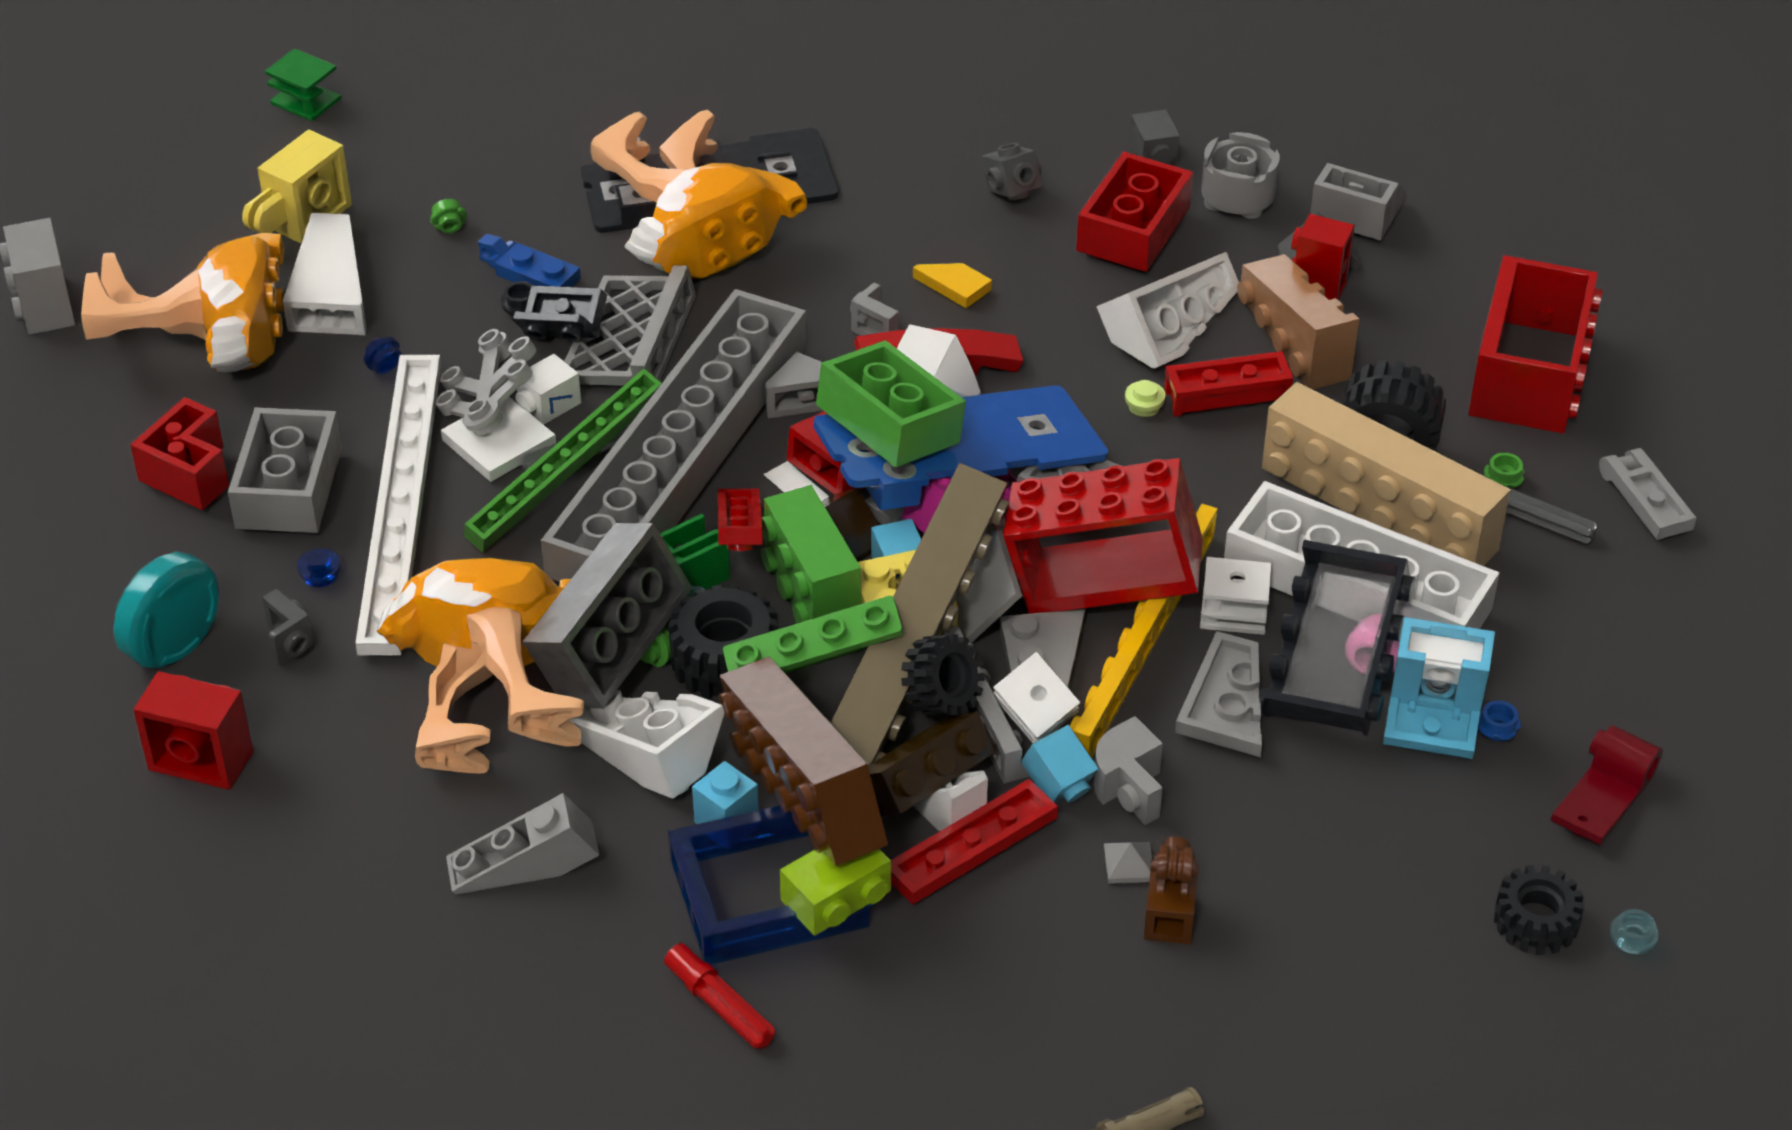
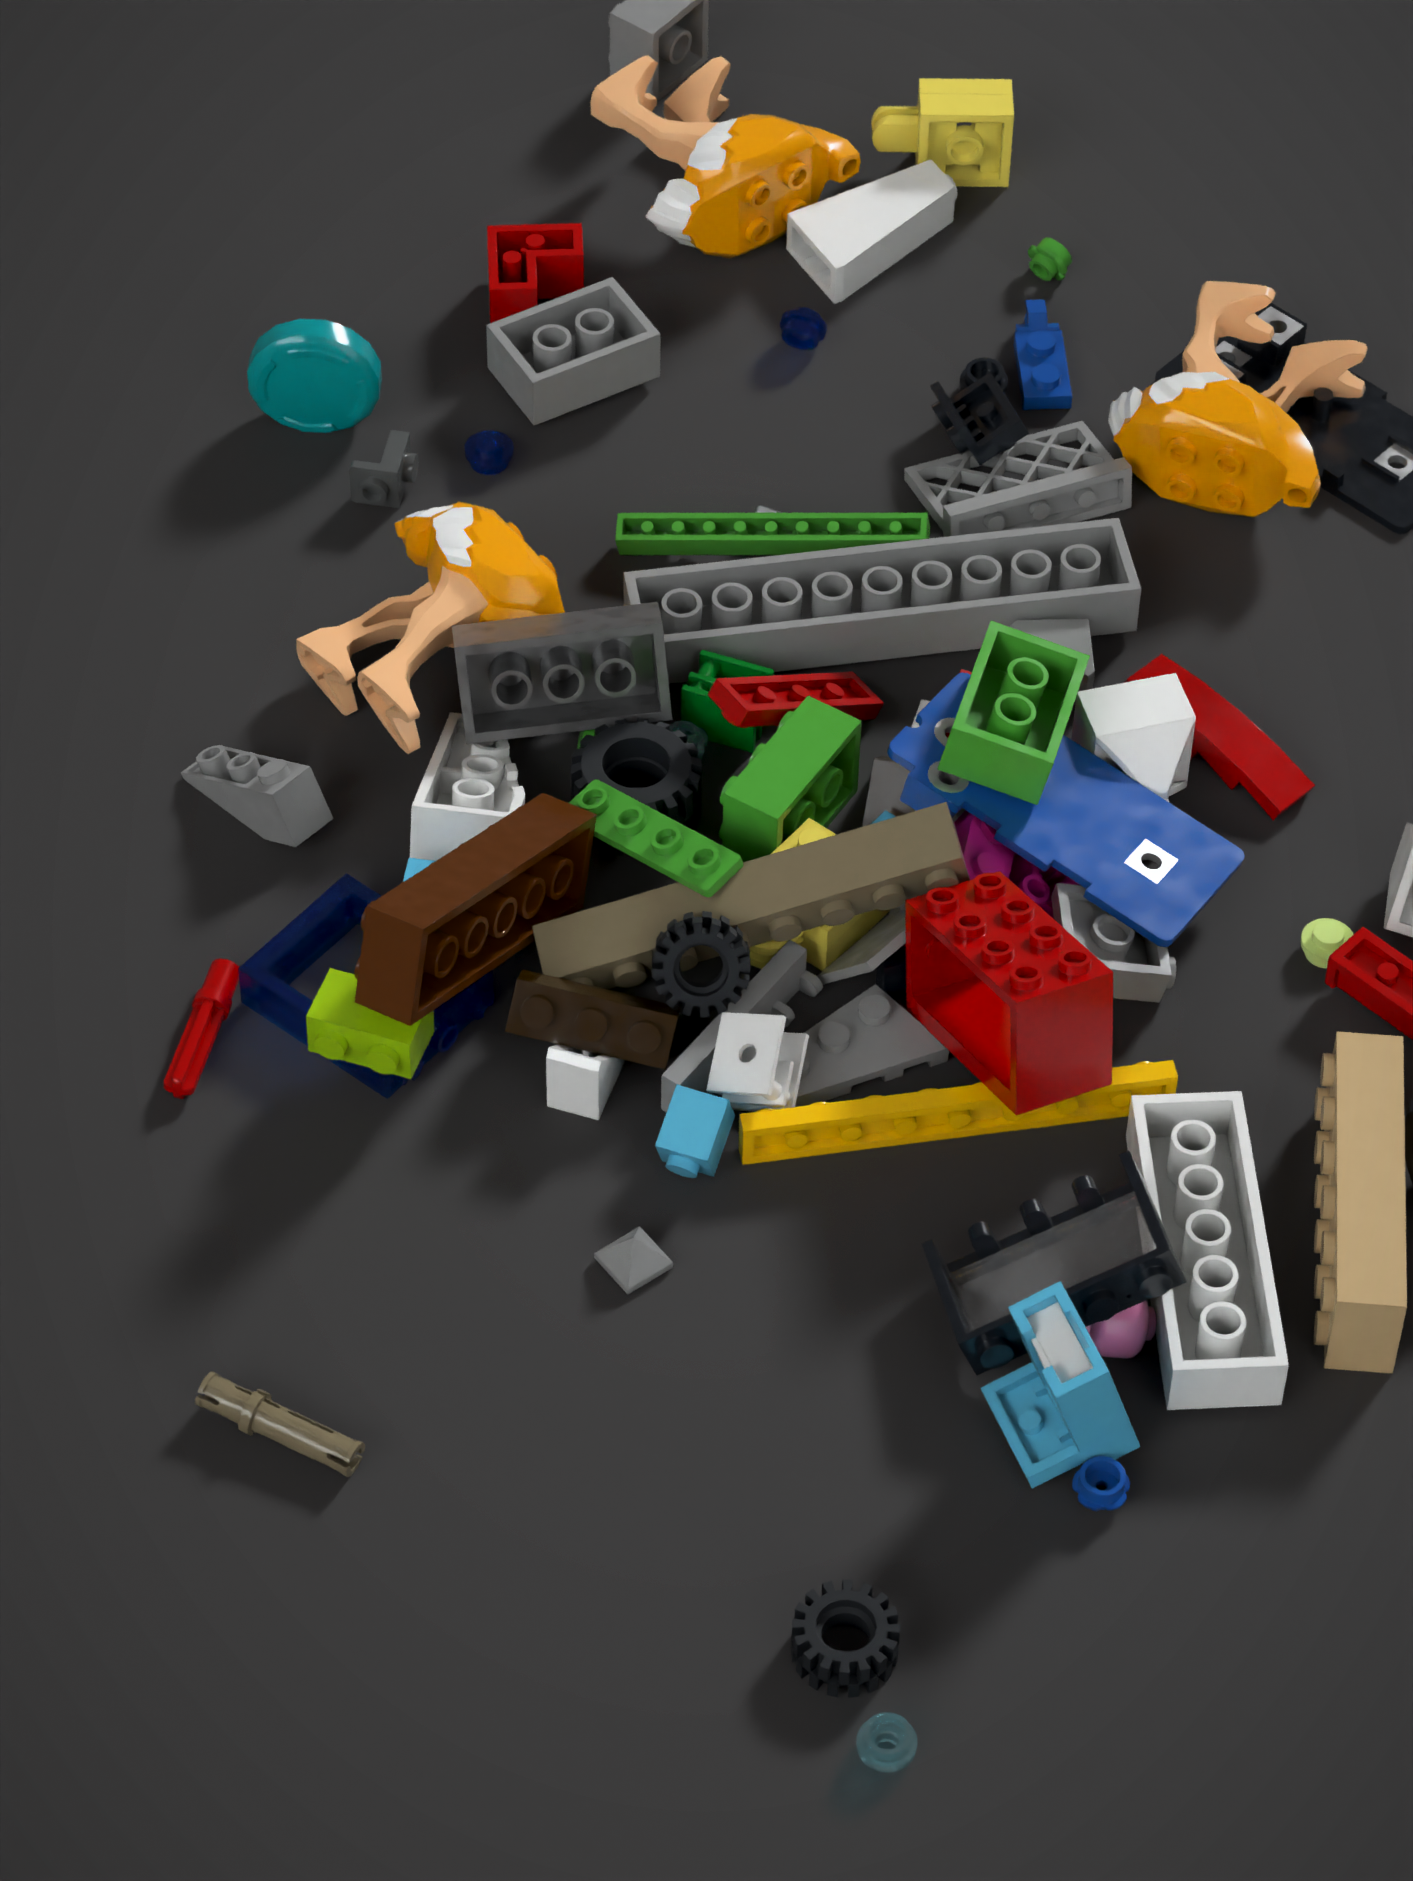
camera: 55 degrees right, 5 degrees up
(193, 730) = (195, 481): red brick -> none
(297, 80) = (1126, 35): green piece -> none
(399, 496) = (659, 436): white plate -> none
(484, 413) = (778, 439): light grey plant -> none
(504, 446) = (777, 473): white tile -> none
(550, 390) = (867, 470): white brick -> none
(871, 315) = (1225, 648): light grey bracket -> none
(954, 281) = (1357, 695): yellow tile -> none
(971, 841) = (547, 1116): red plate -> none
(1126, 765) = (749, 1182): light grey brick -> none
(1172, 893) = (596, 1306): reddish brown brick -> none
(1225, 697) = (894, 1223): light grey wing -> none
(1235, 603) = (1070, 1147): white piece -> none
(1616, 778) = (1119, 1633): dark red door -> none

